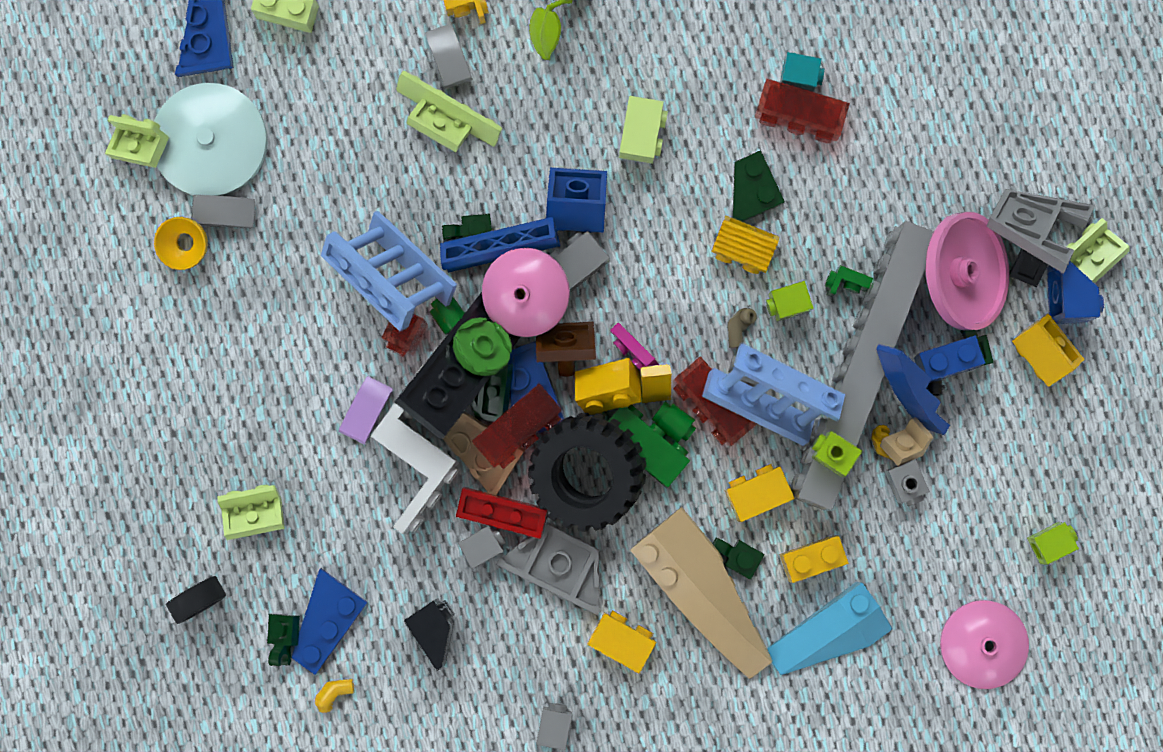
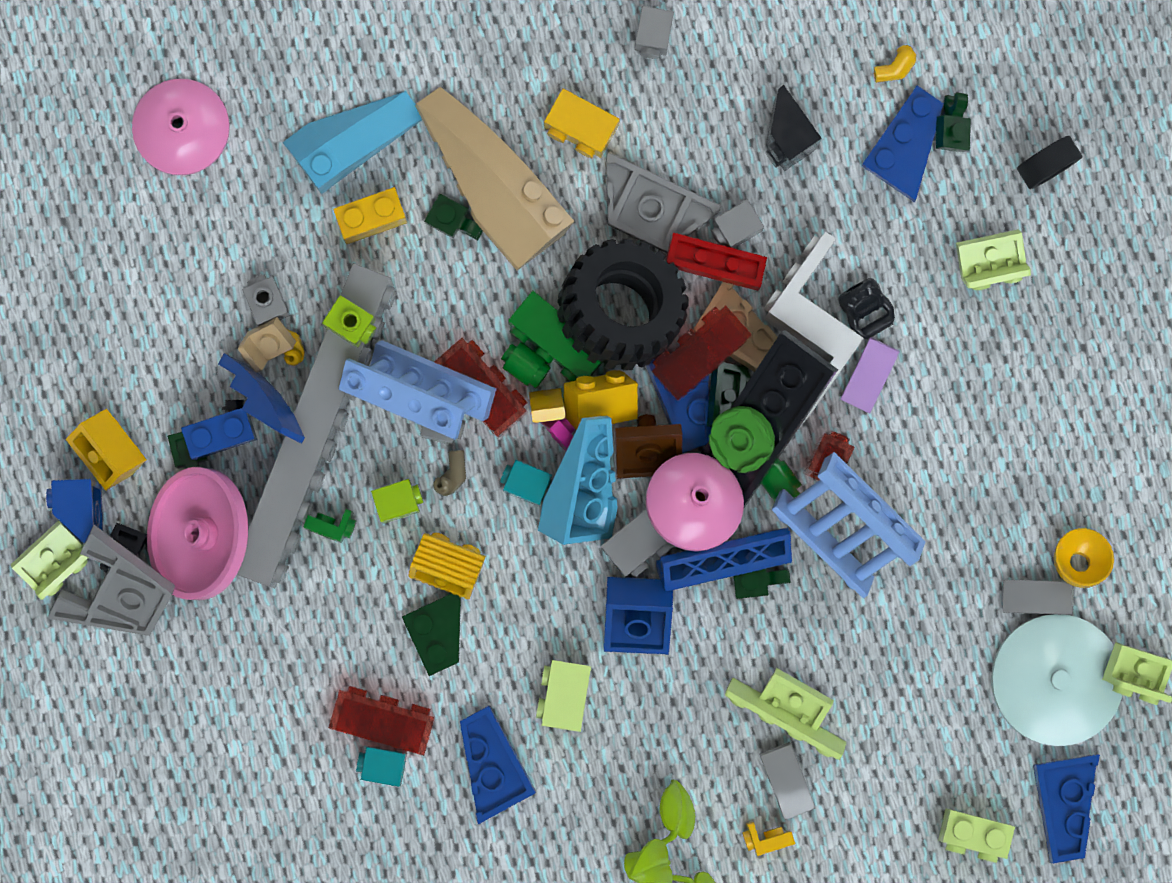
camera: 175 degrees right, 0 degrees up
(372, 476) = (863, 300): none -> black piece
(625, 303) = (580, 496): none -> medium azure wedge
(674, 317) = (525, 482): none -> teal brick
(704, 73) = (493, 765): none -> blue wing
(759, 493) = (431, 287): yellow brick -> none
(1053, 542) = (103, 236): lime brick -> none

